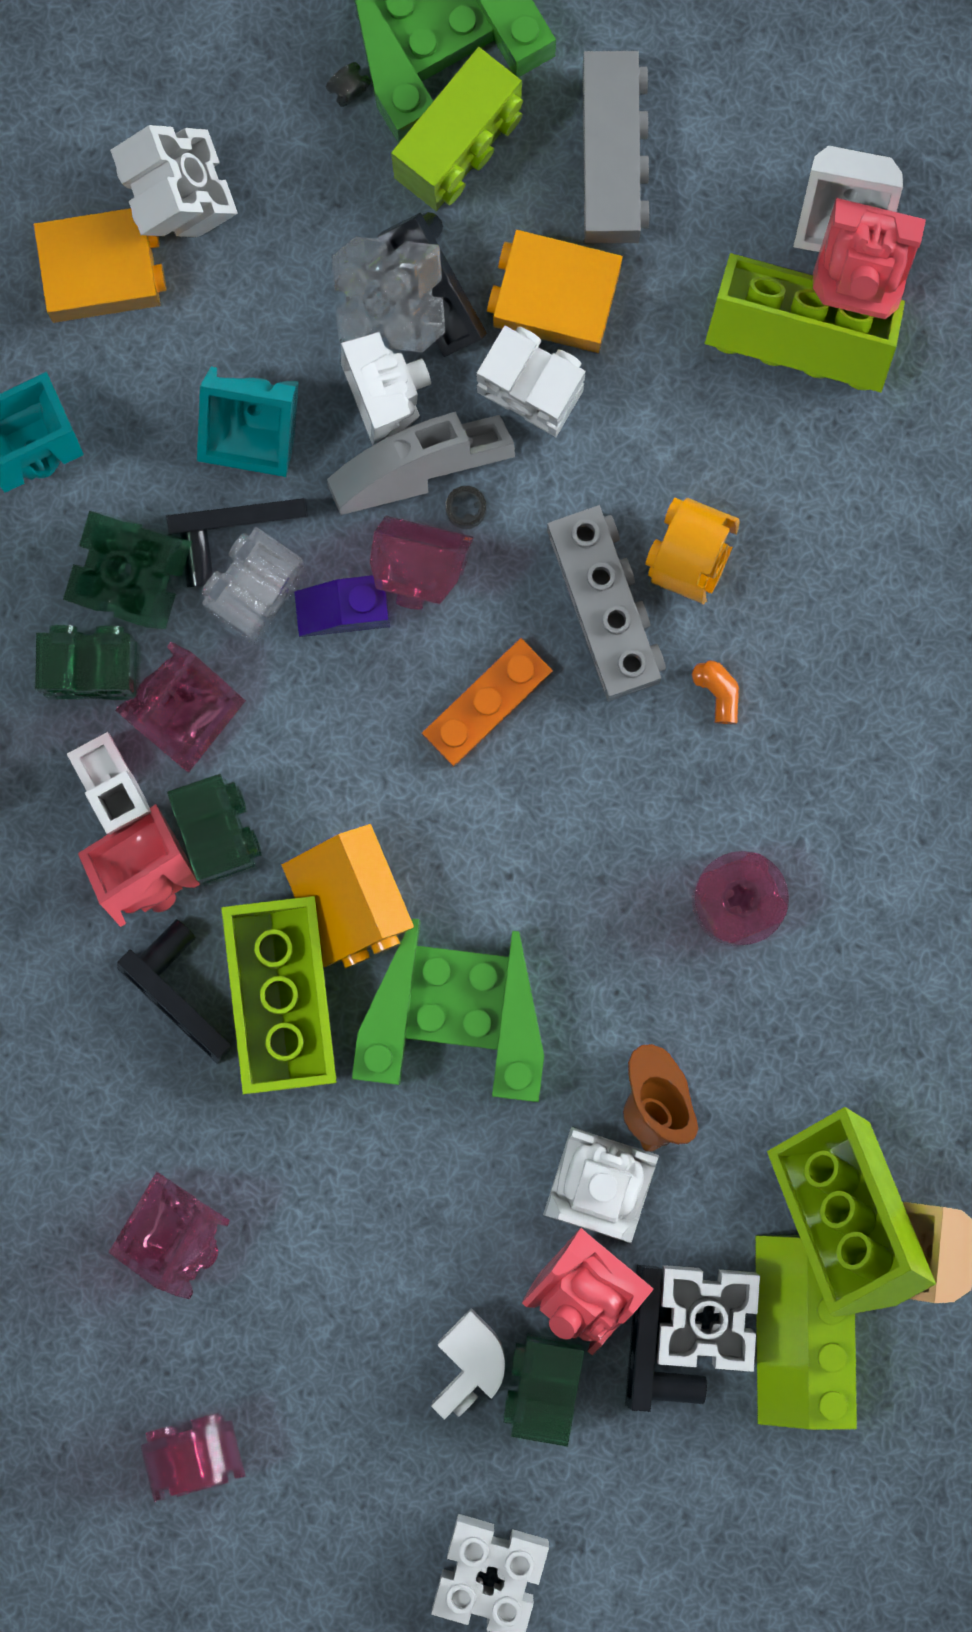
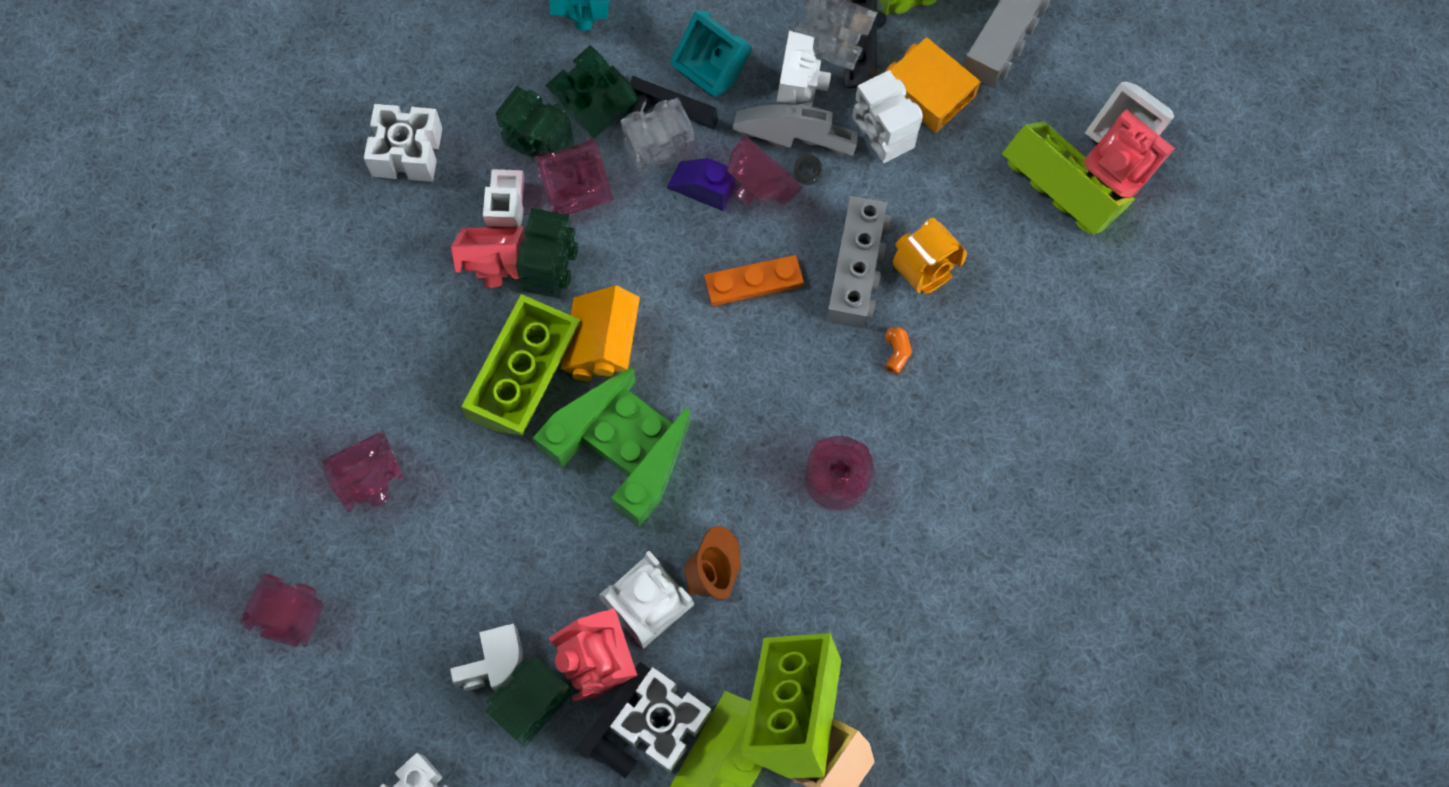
camera: 25 degrees right, 15 degrees down
(145, 974) = (454, 314): black piece -> none

